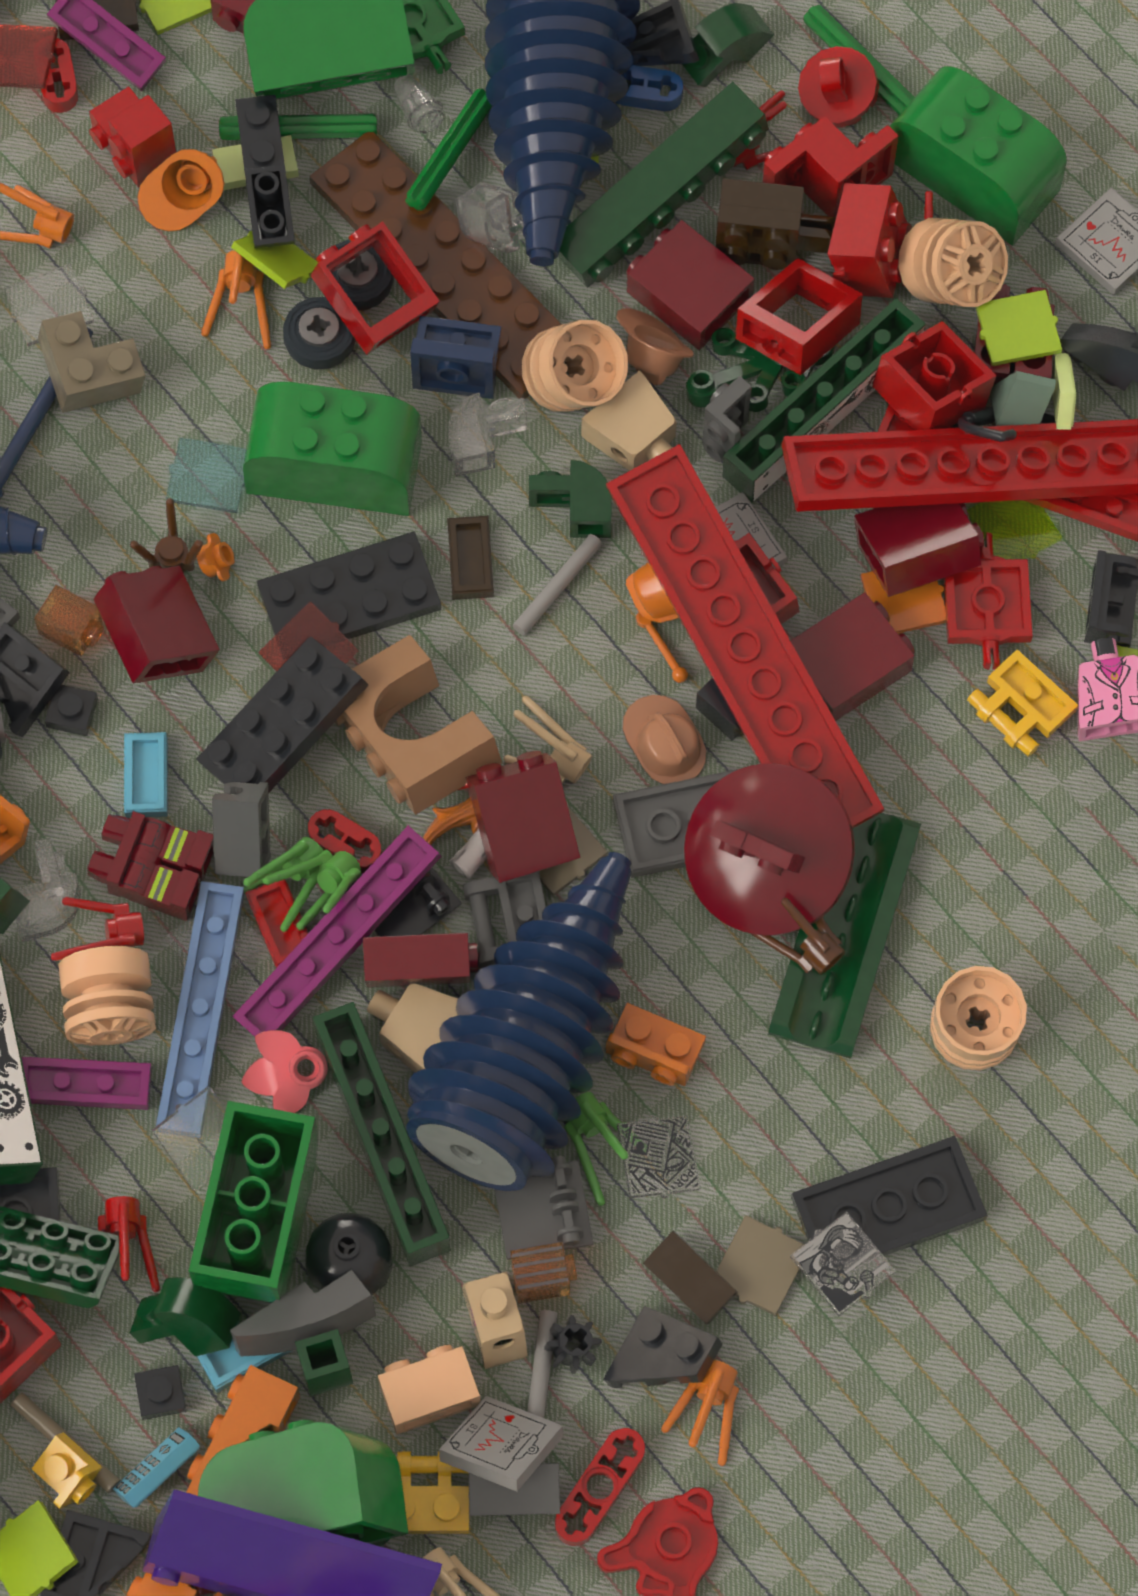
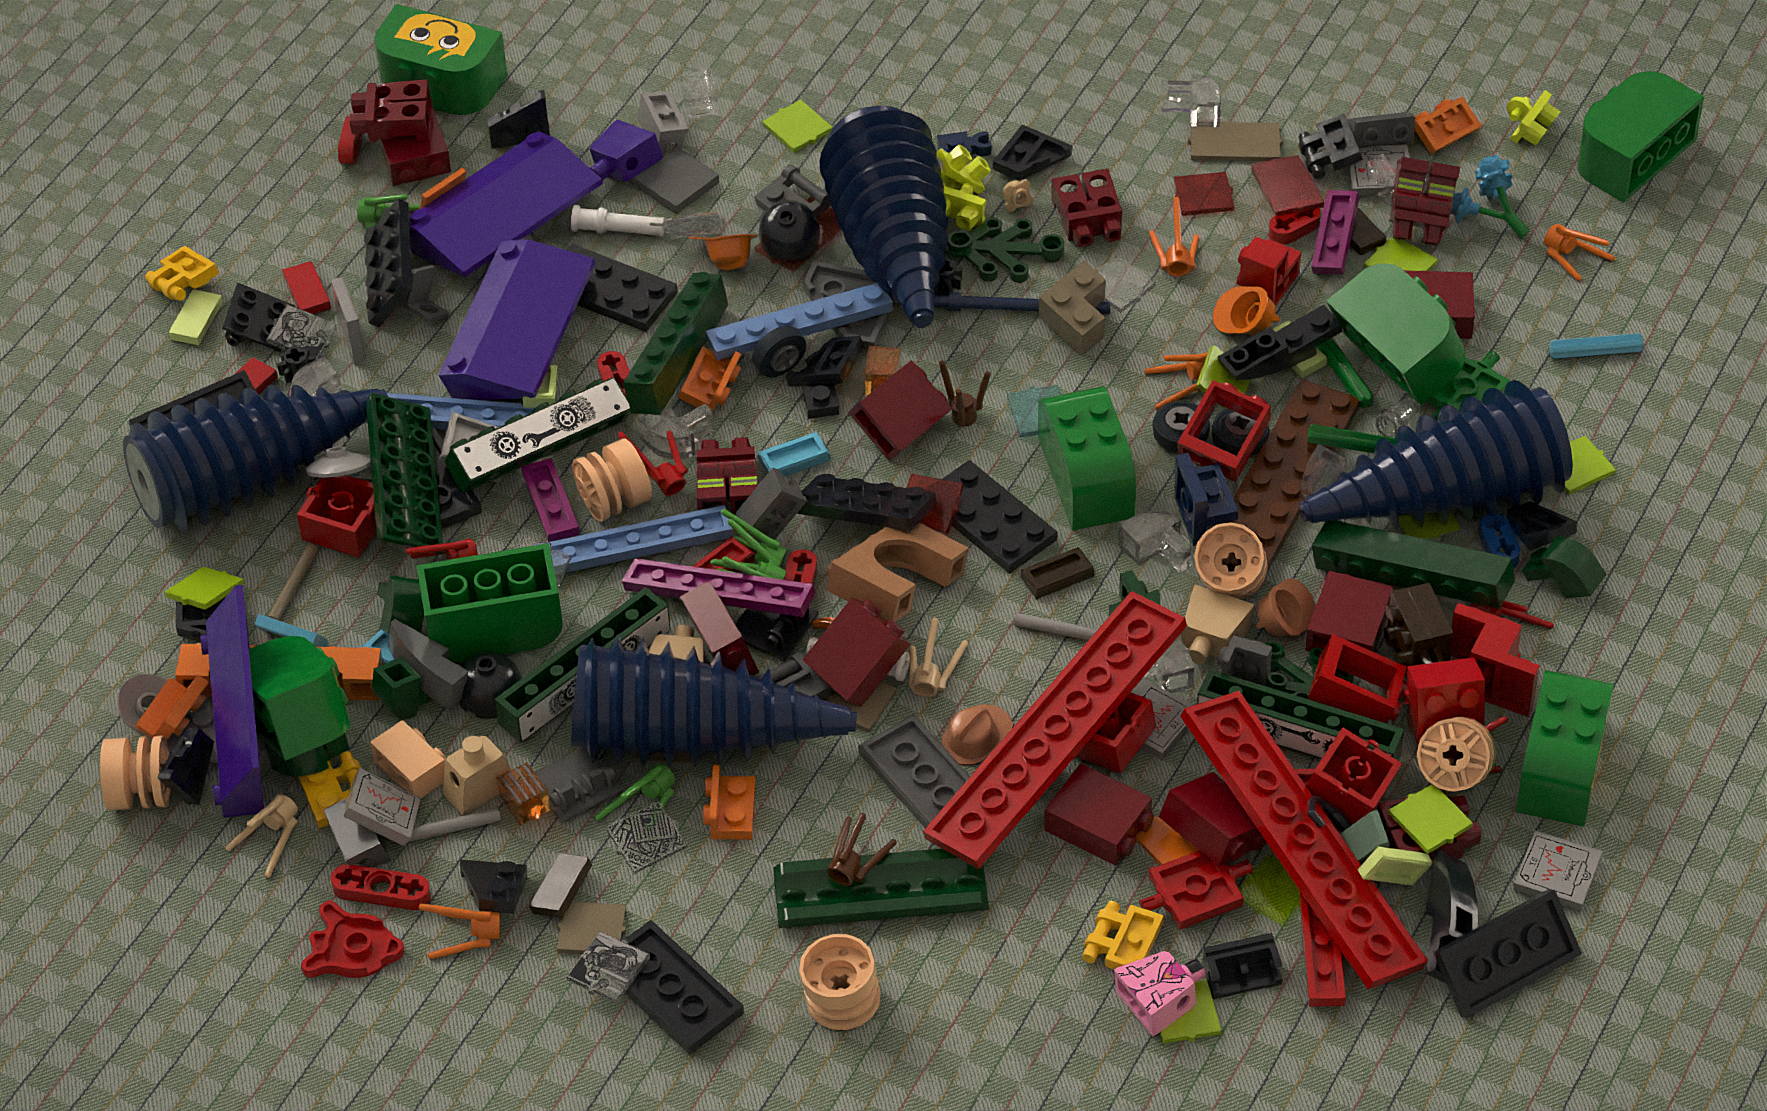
camera: 70 degrees right, 20 degrees down
(67, 1470) = (269, 587): yellow bracket -> none
(160, 1392) = (348, 621): black plate -> none
(216, 558) = (966, 429): orange plate -> none
(278, 1073) = (606, 598): coral plate -> none
(582, 1353) = (477, 829): black gear -> none
(767, 839) = (907, 801): dark red bracket -> none
(835, 35) = (1615, 647): green axle -> none
(838, 86) = (1573, 647): red tile -> none

